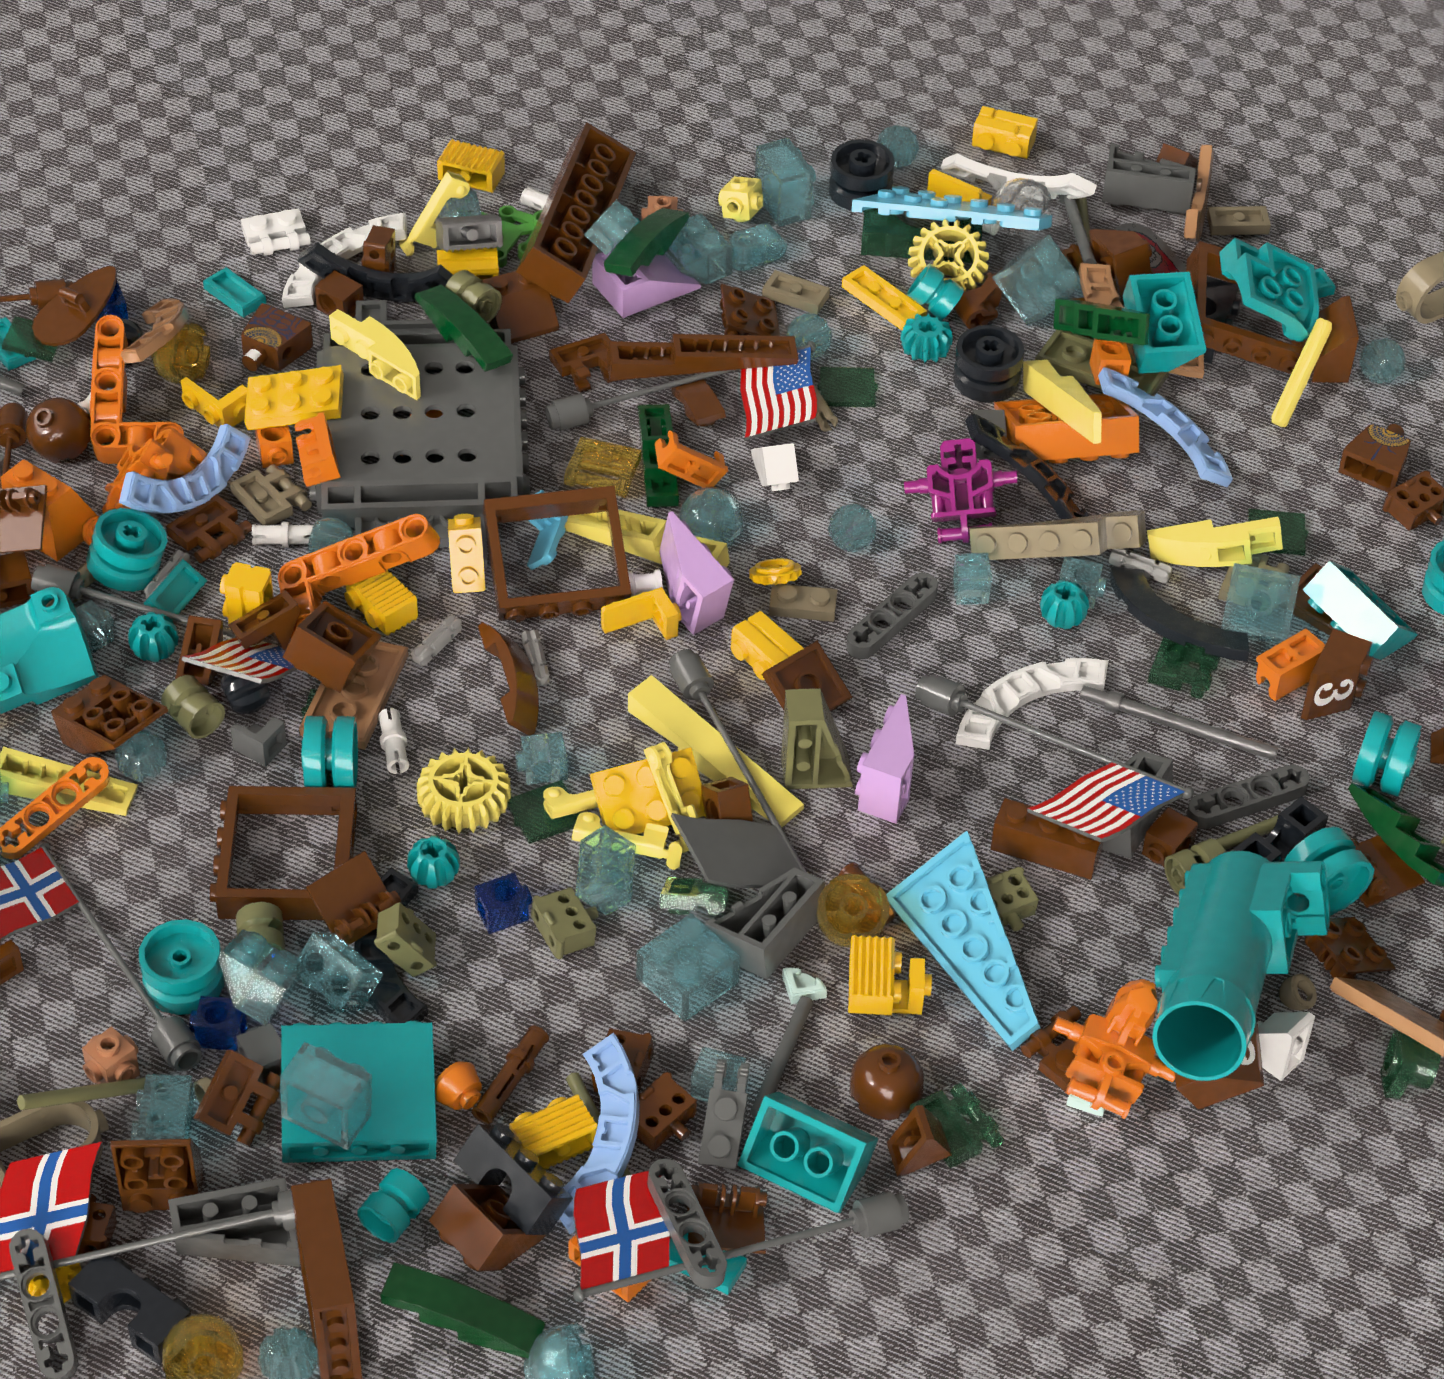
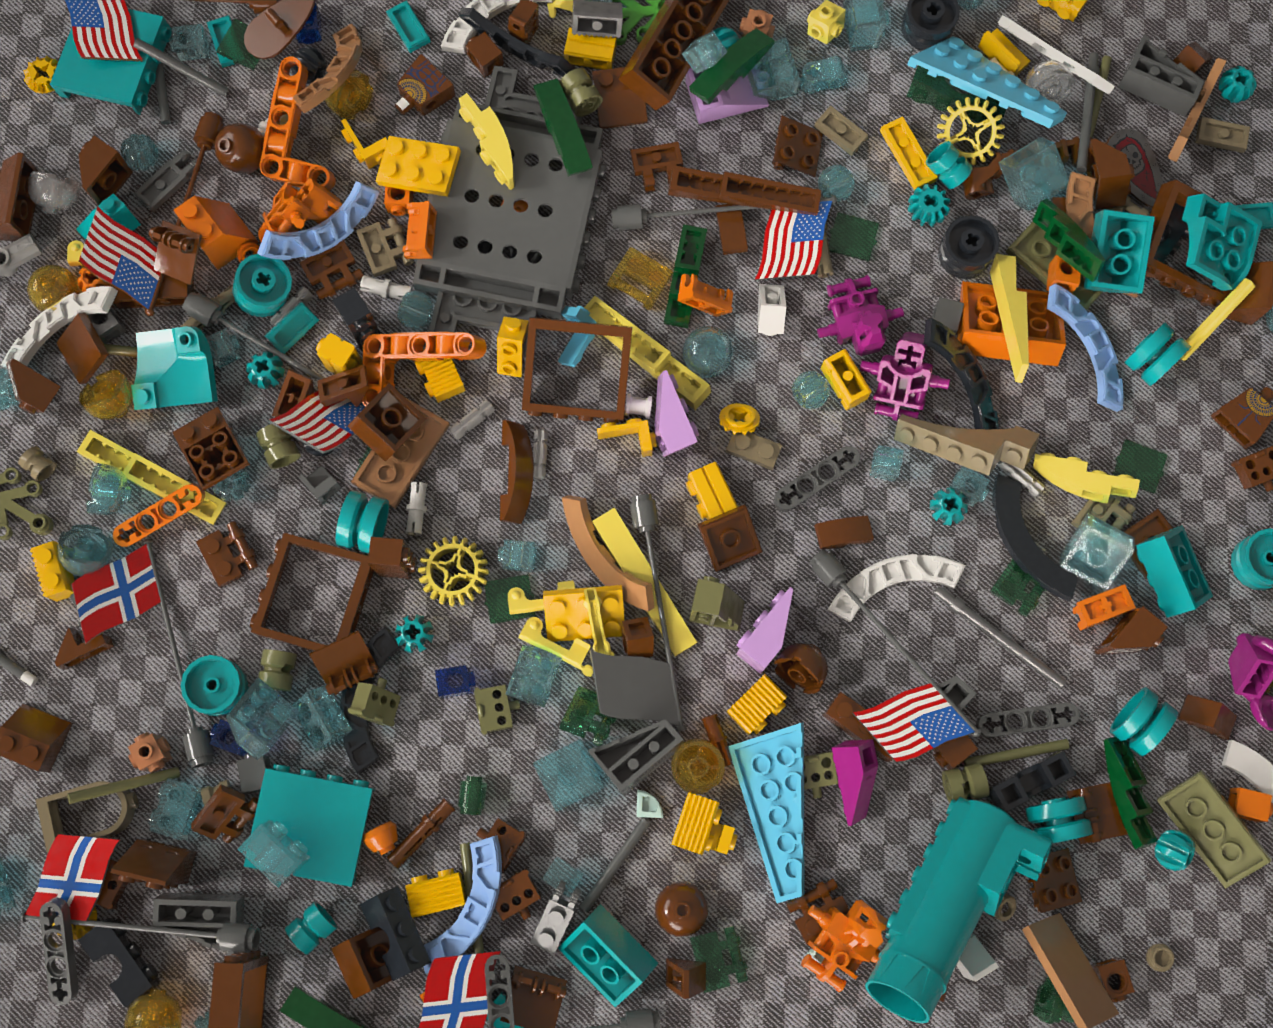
camera: 15 degrees right, 30 degrees up
(145, 842) = (220, 558): none -> reddish brown plate
(266, 537) = (356, 316): none -> black arch
(384, 773) = (391, 558): none -> reddish brown brick
(566, 1018) = (472, 795): none -> clear green brick
(636, 734) = (598, 558): none -> medium nougat tile
(883, 448) = (858, 316): none -> magenta piece
(892, 507) = (845, 379): none -> yellow brick
(904, 845) = (757, 705): none -> yellow brick
(942, 655) = (844, 531): none -> reddish brown slope
(946, 793) = (802, 666): none -> reddish brown cylinder
(1058, 876) = (856, 773): none -> magenta slope
(1235, 173) = (1237, 84): none -> teal piece
(1249, 413) = (1157, 354): none -> teal wheel

